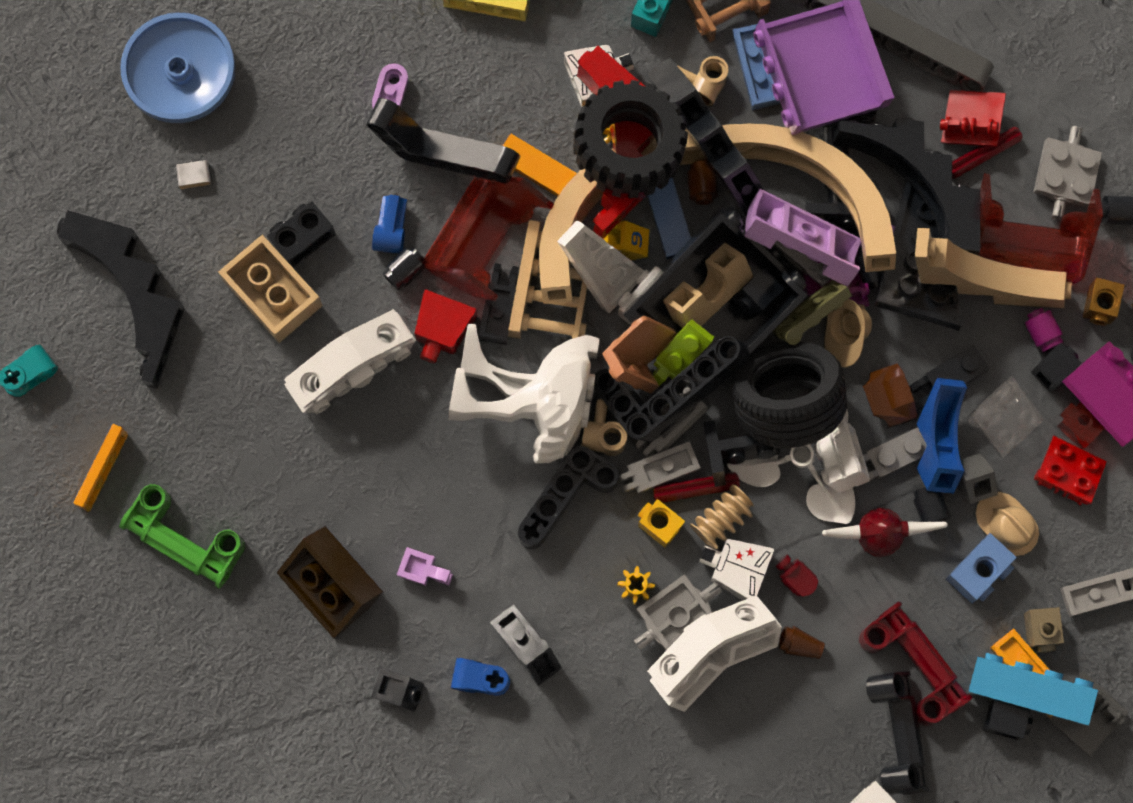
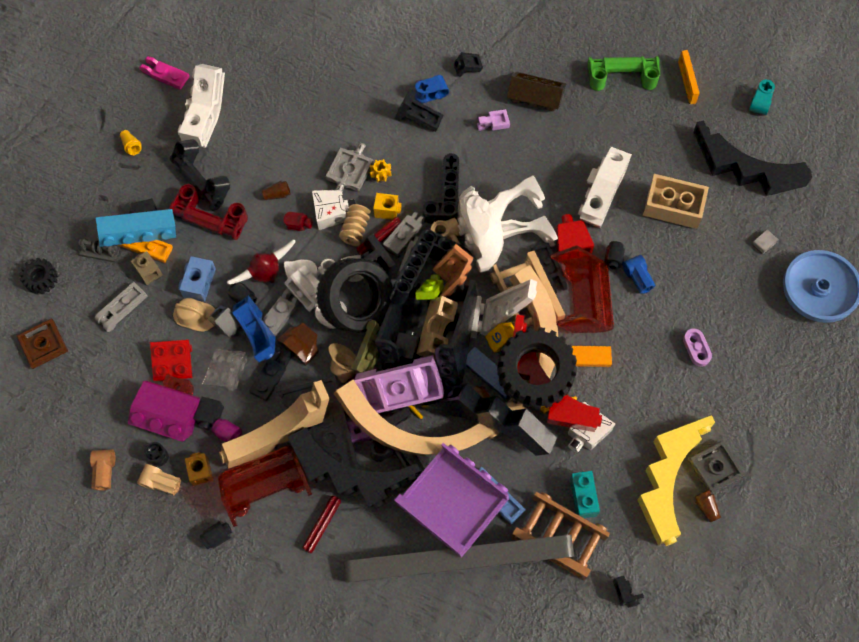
camera: 150 degrees right, 10 degrees down
(306, 240) = (679, 239): black brick -> none
(440, 149) = (644, 322): black beam -> none
(709, 87) = (518, 458): tan piece -> none
(711, 647) = (320, 155): white brick -> none
(973, 118) = (340, 540): red hinge -> none
(1067, 172) = (262, 542): light grey plate -> none

